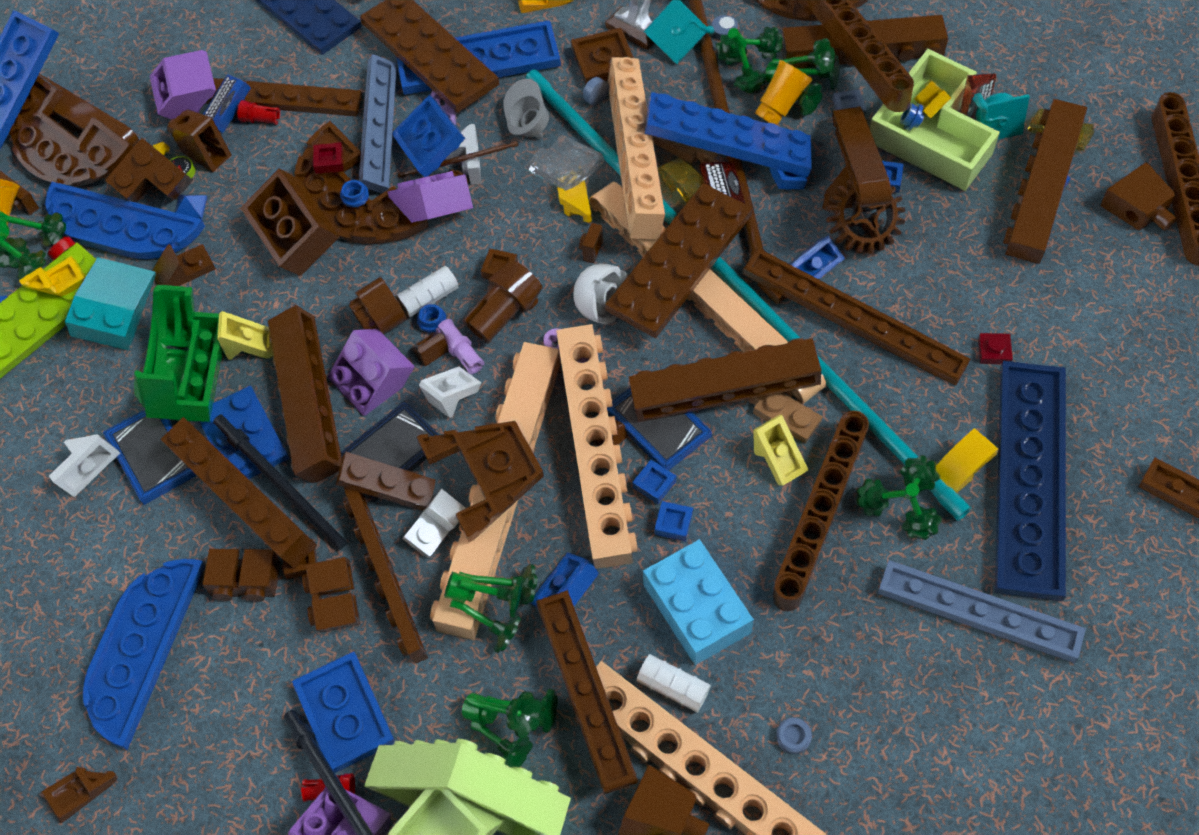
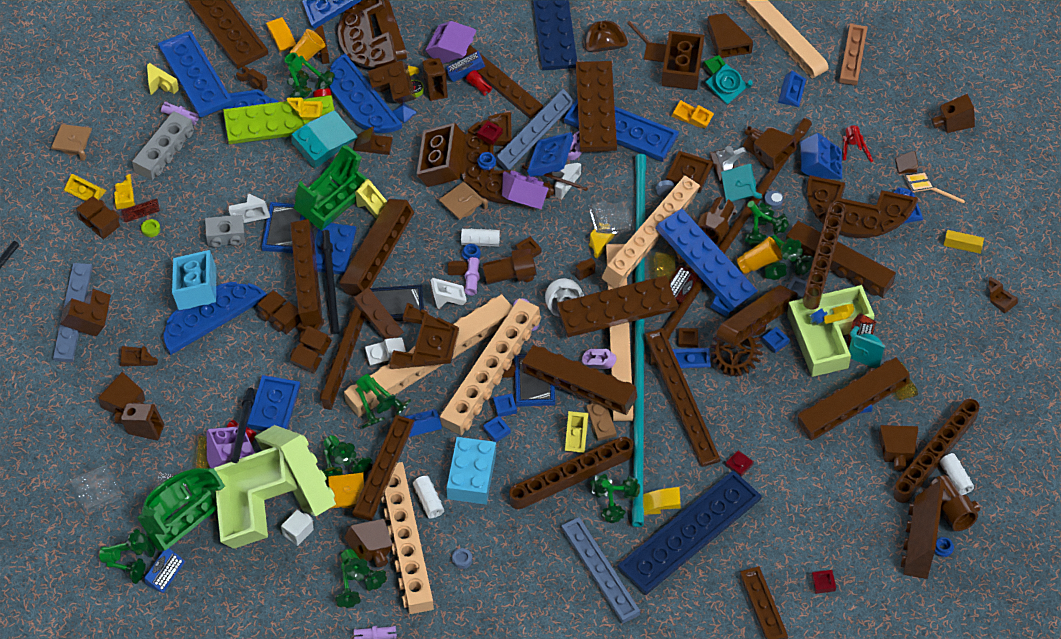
camera: 35 degrees right, 5 degrees down
(72, 498) = (225, 230): none -> light grey brick
(80, 616) = (194, 280): none -> medium azure brick
(363, 261) = (462, 201): none -> medium nougat hat
(369, 369) = (418, 257): medium lavender slope -> none
(377, 307) = (447, 228): reddish brown piece -> none
(525, 109) = (615, 175): light grey piece -> none
(557, 758) = (346, 489): none -> light orange hat
(692, 83) = (716, 221): none -> reddish brown piece
(719, 344) = (599, 354): none -> lavender beam
(787, 241) = (688, 337): none -> reddish brown tile

